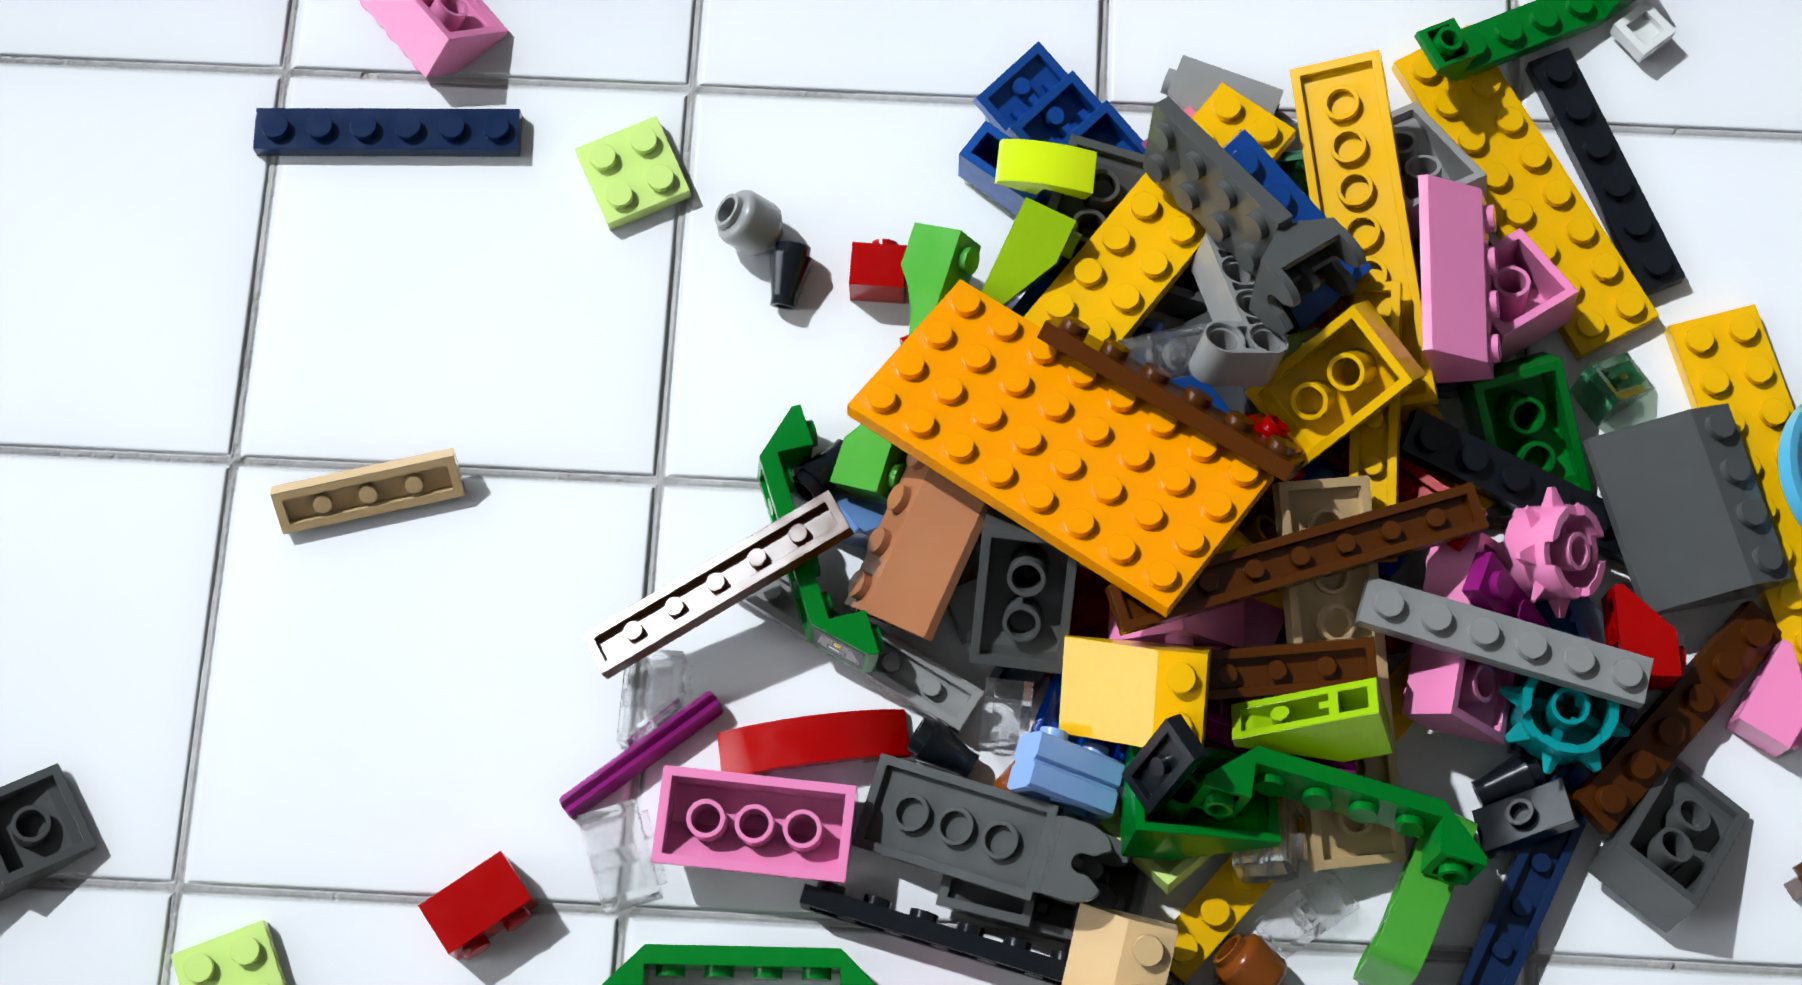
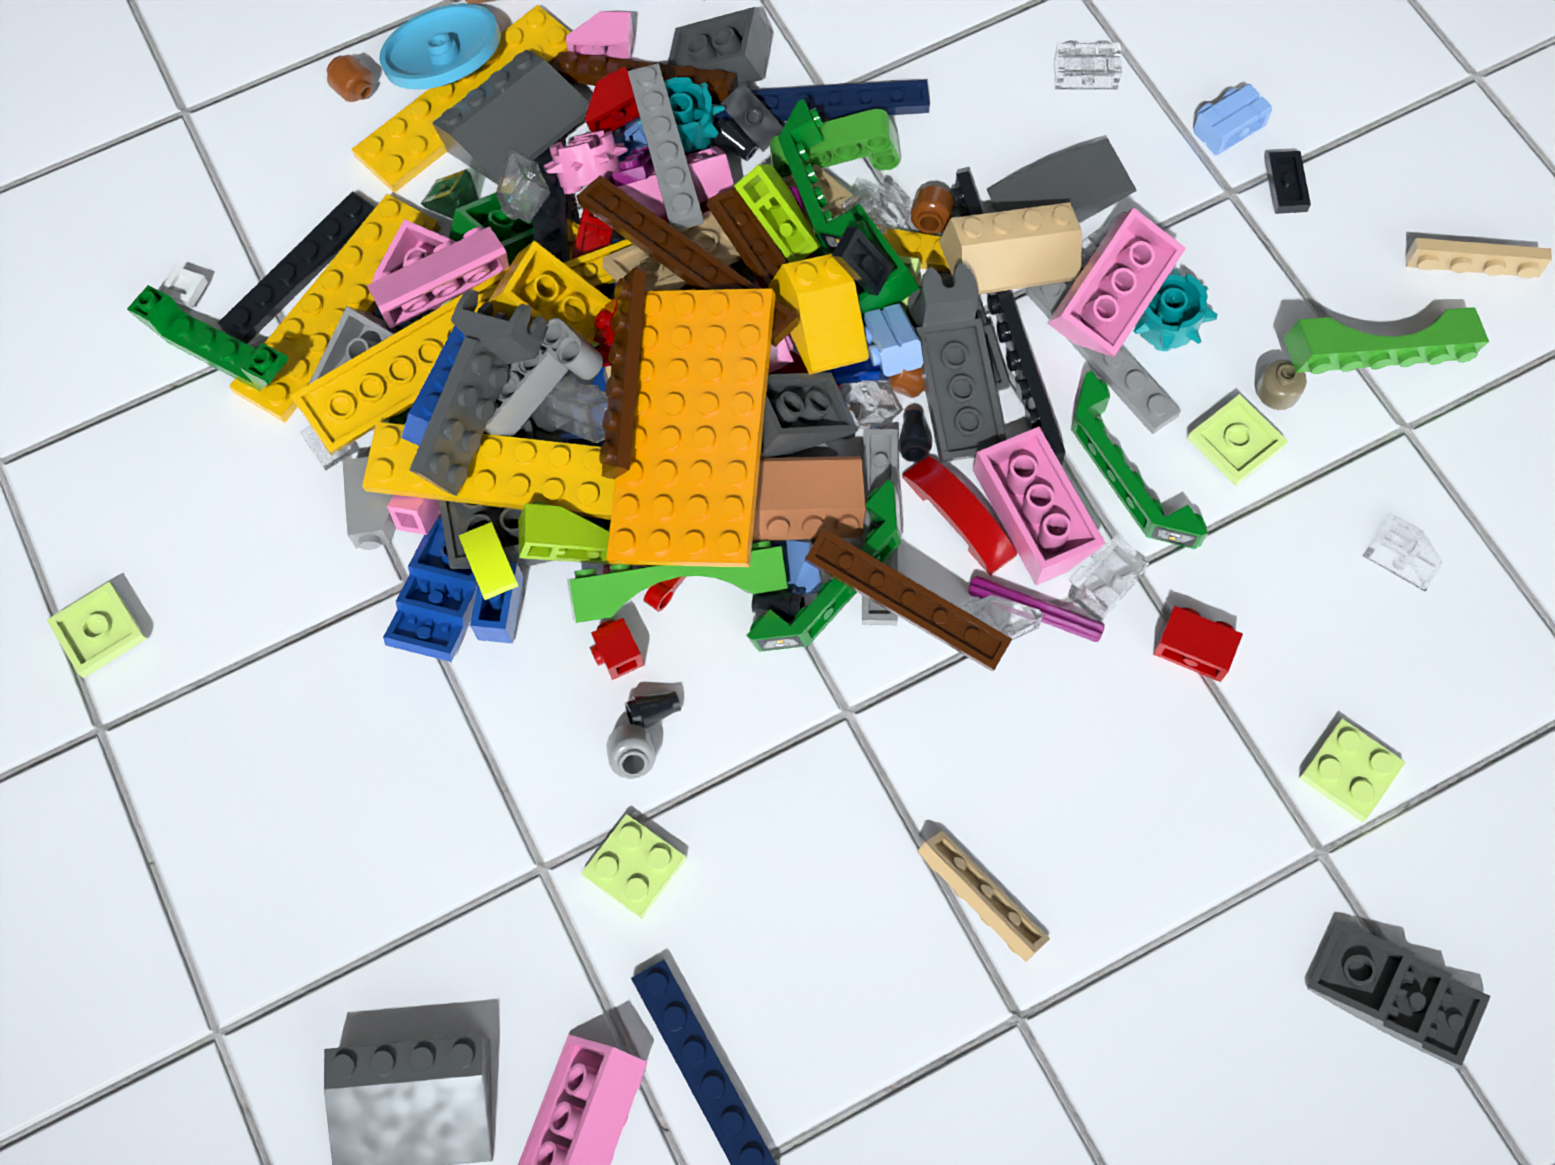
camera: 120 degrees left, 5 degrees down
(1559, 457) = (521, 187): none -> clear slope

